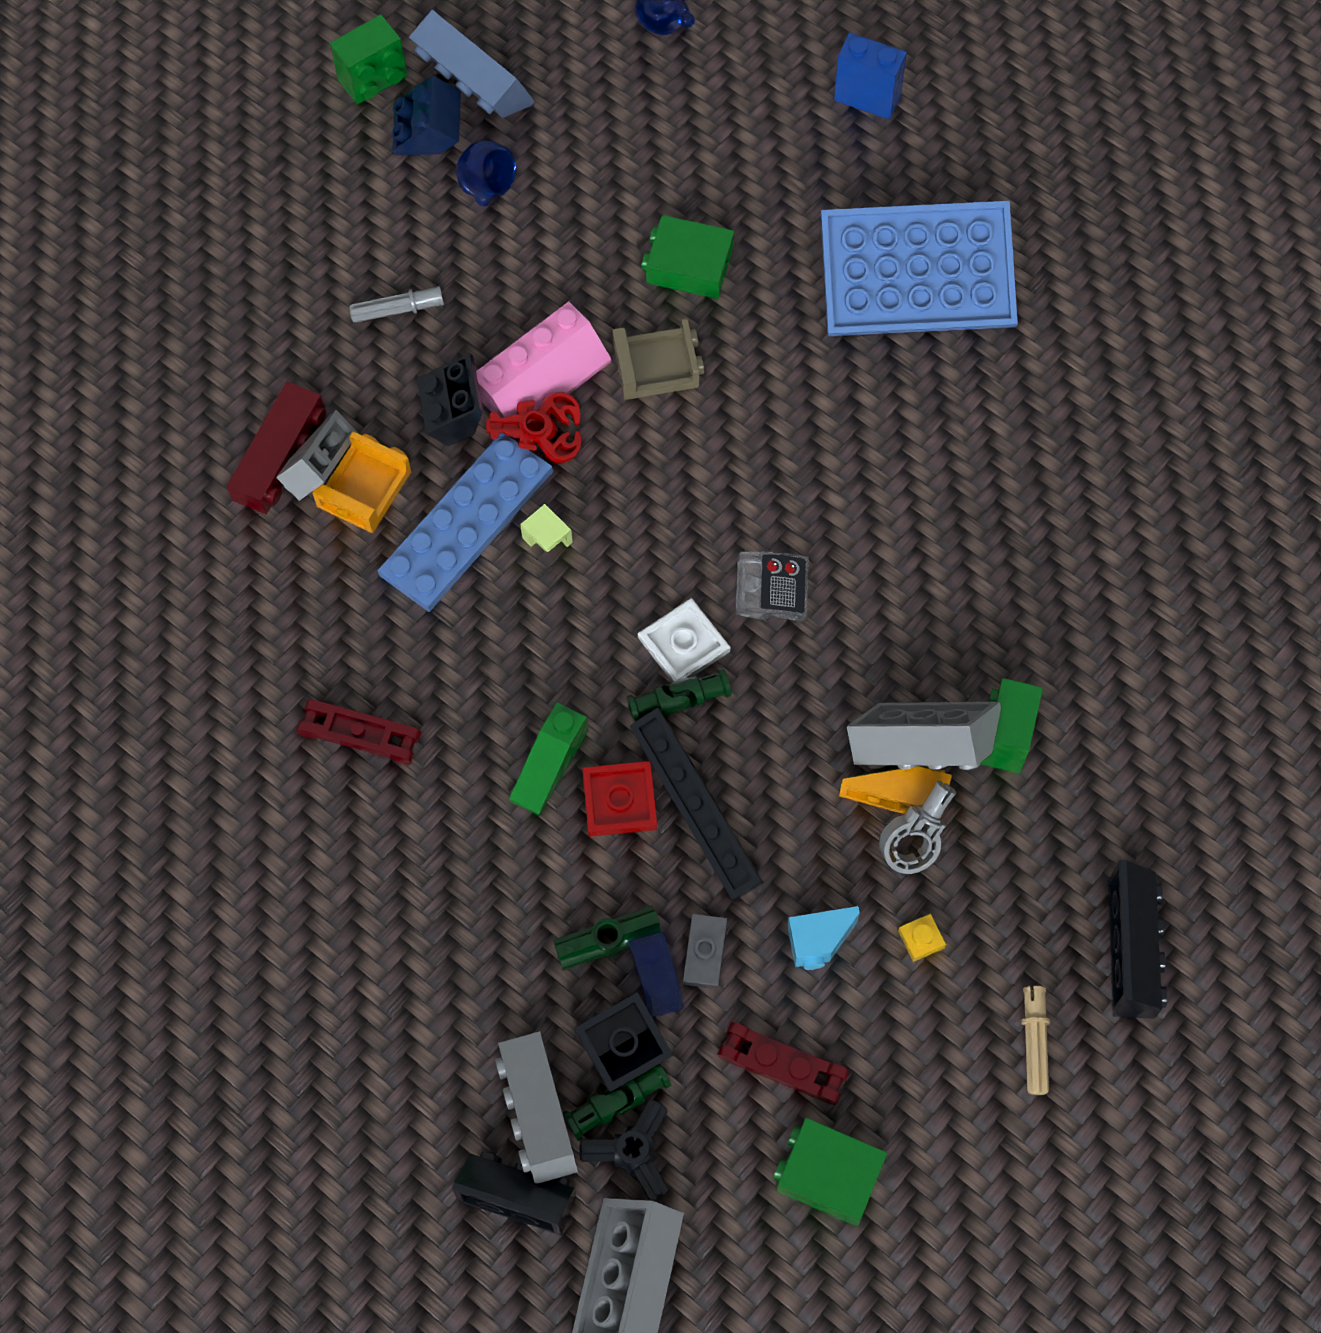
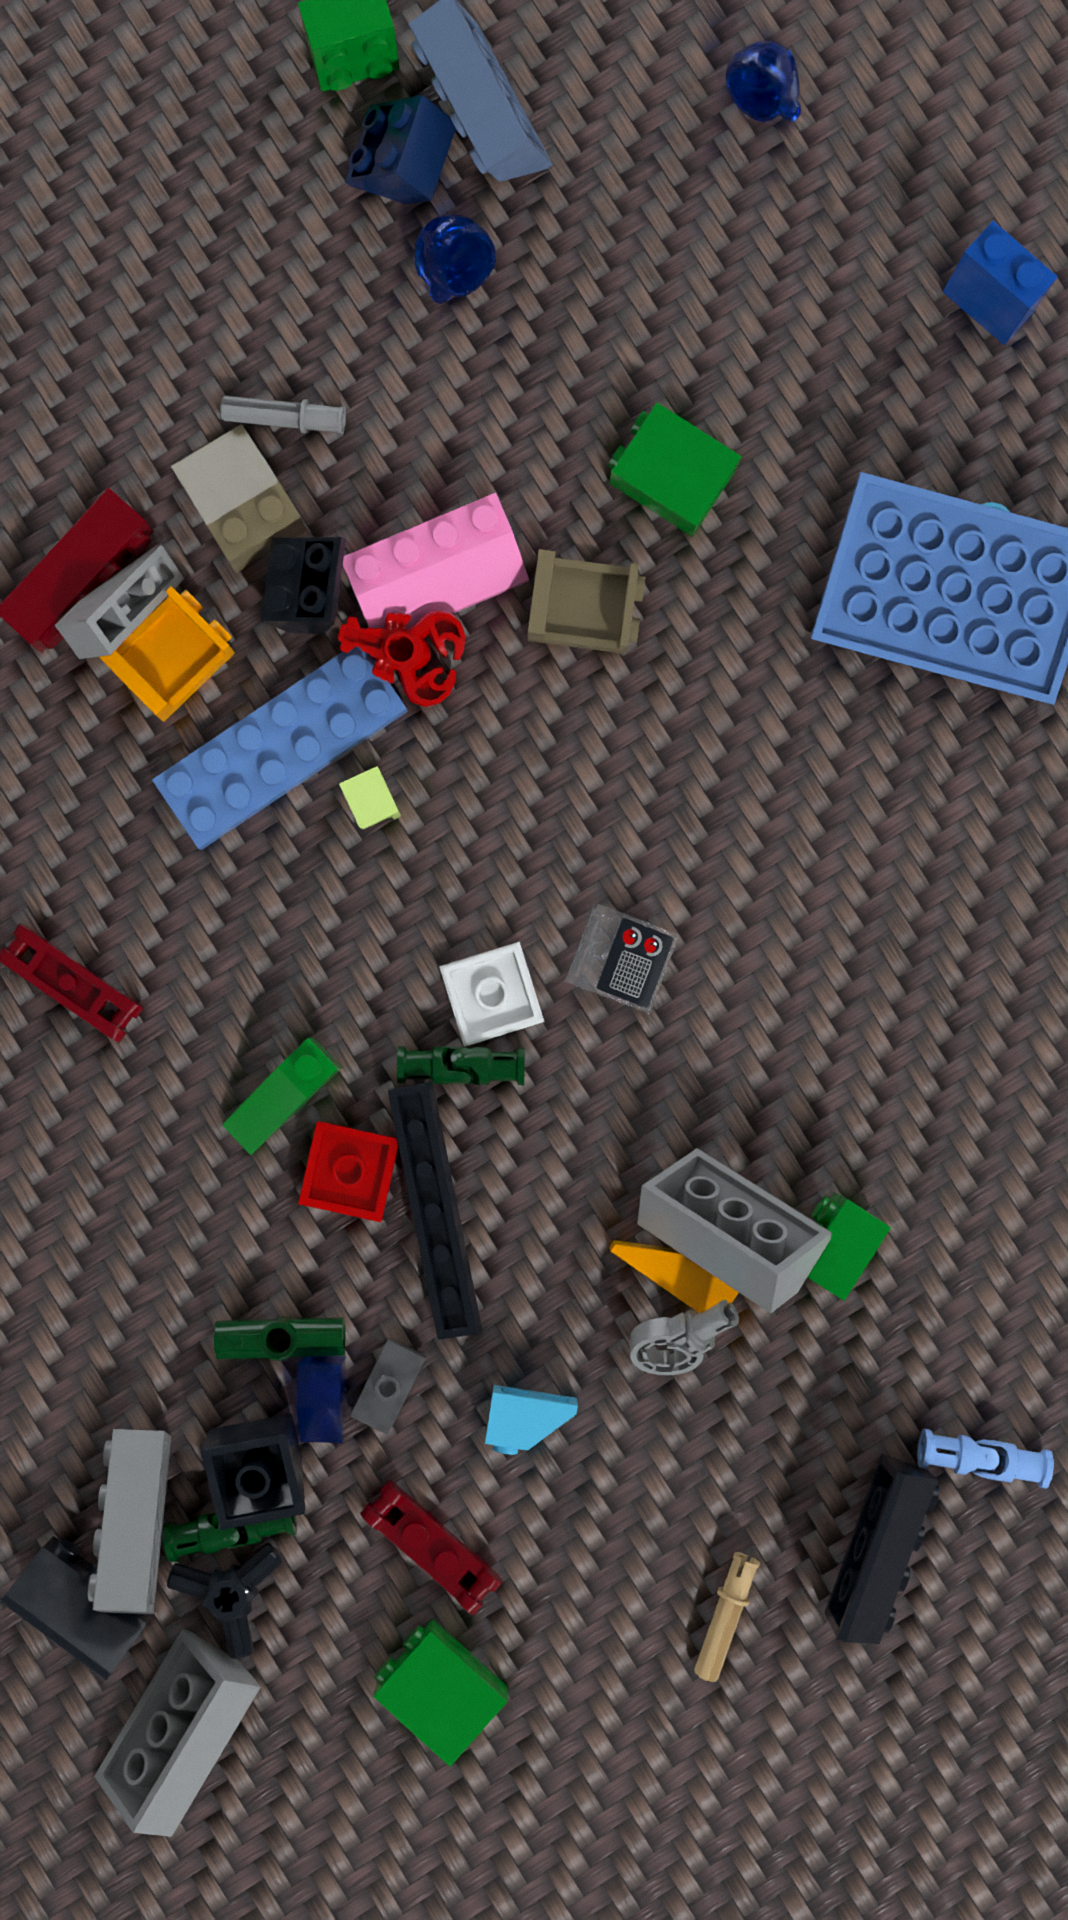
camera: 15 degrees right, 20 degrees up
(382, 367) = (238, 497): none -> dark tan slope
(922, 937) = (641, 1452): yellow plate -> none
(1182, 852) = (969, 1456): none -> light blue piece

